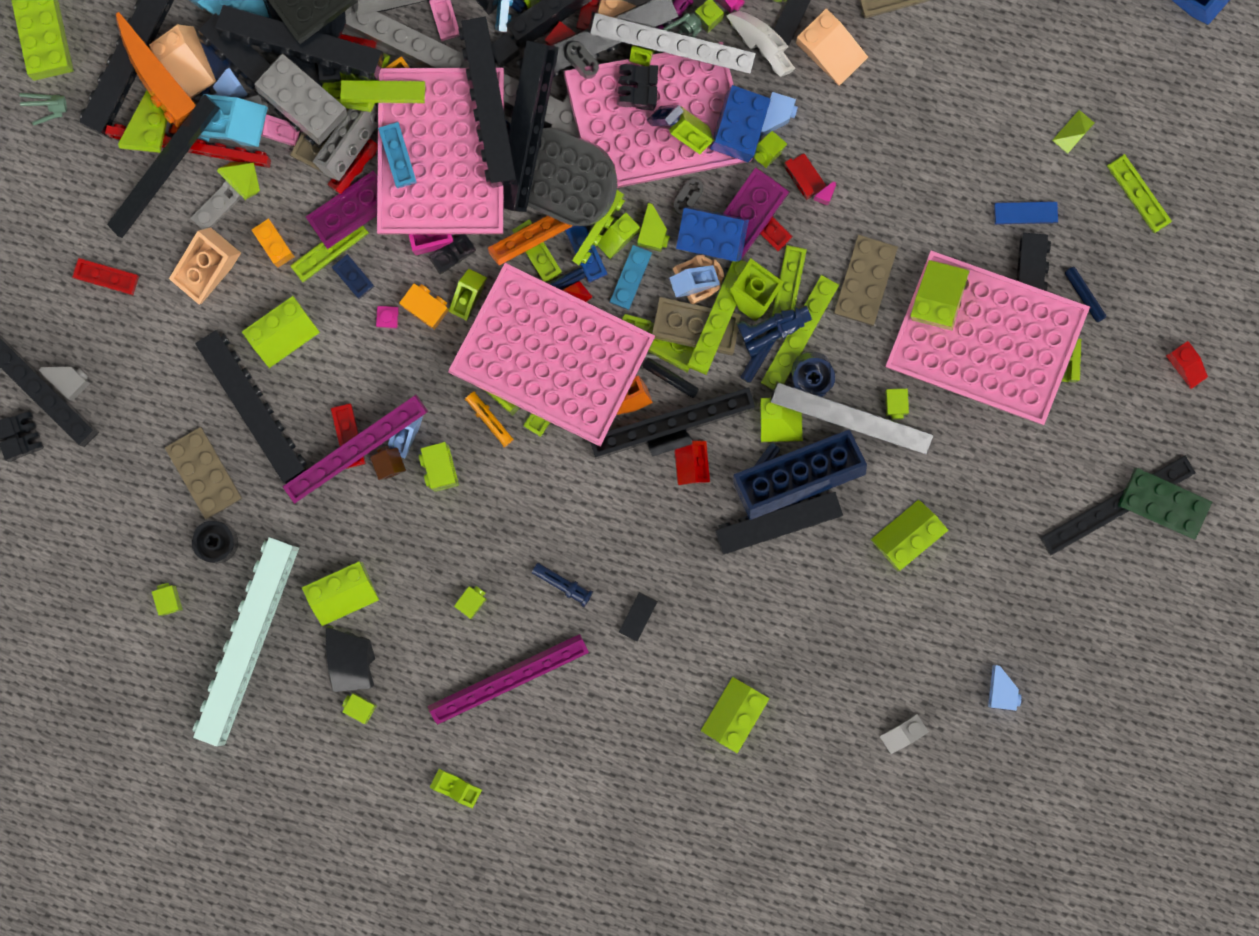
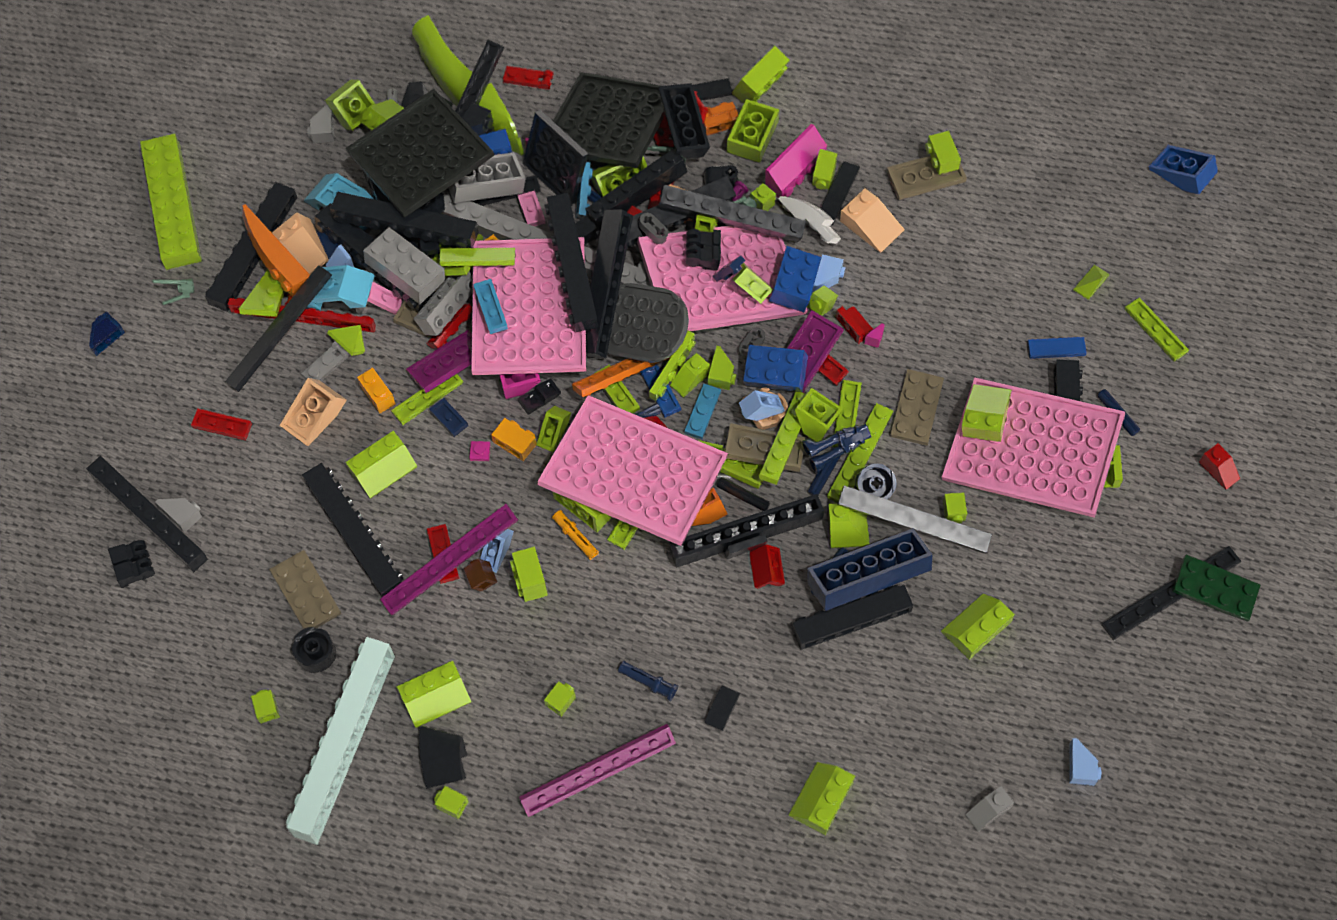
camera: 10 degrees left, 20 degrees down
(455, 788) = (547, 878): lime slope -> none

